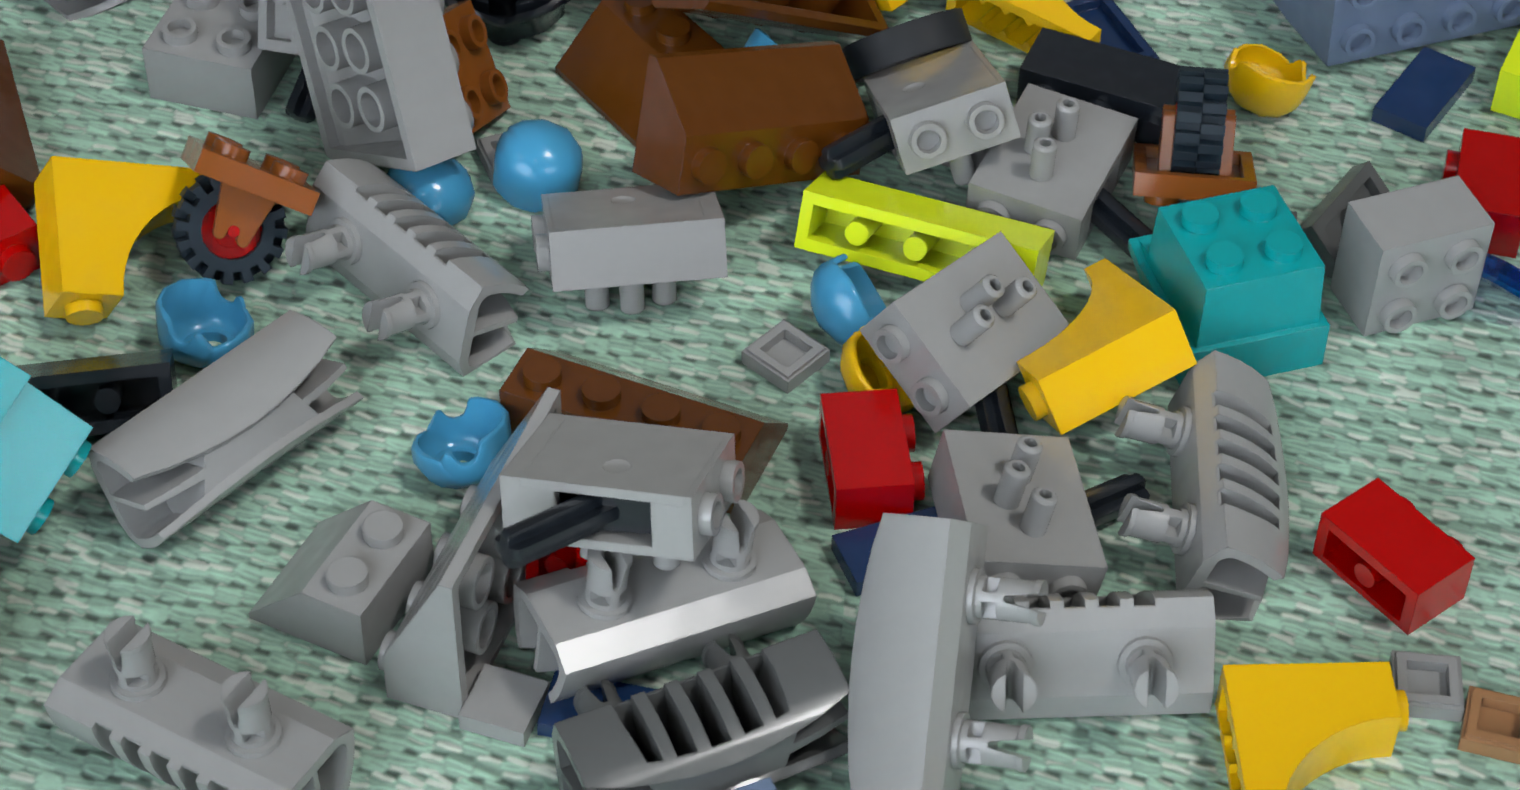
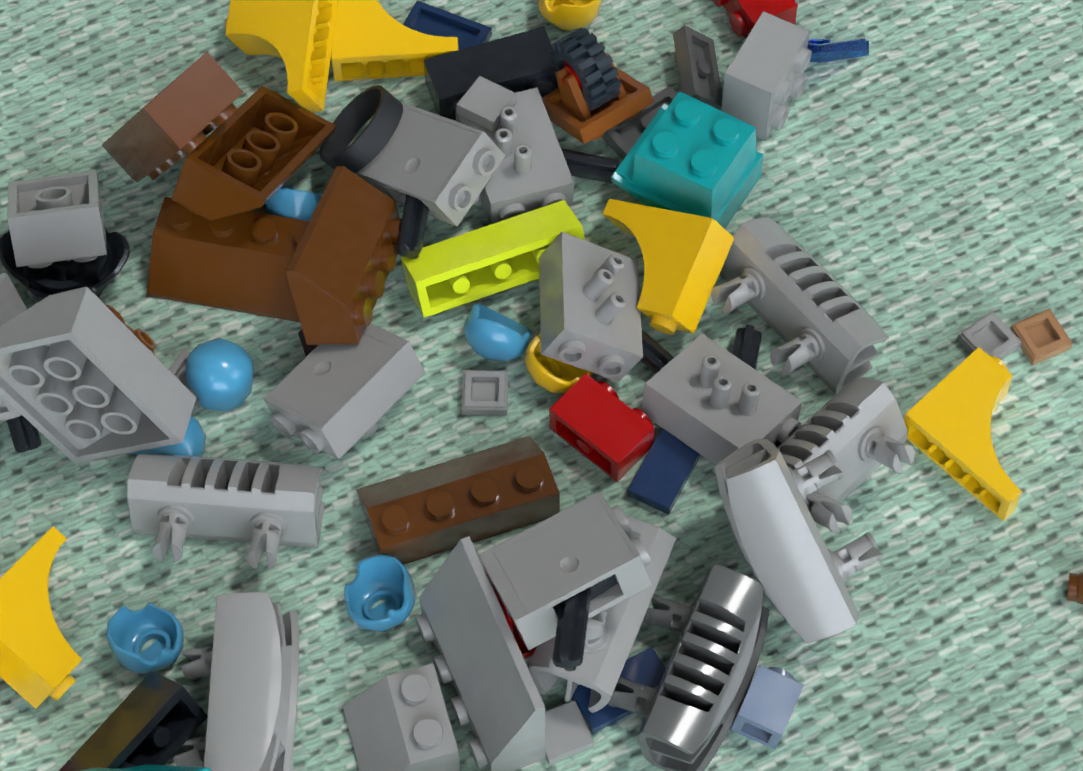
camera: 40 degrees left, 15 degrees up
(233, 213) = (92, 546): plate -> none
(1049, 85) = (484, 102): none -> light grey tile
(1393, 555) = (913, 275): red brick -> none

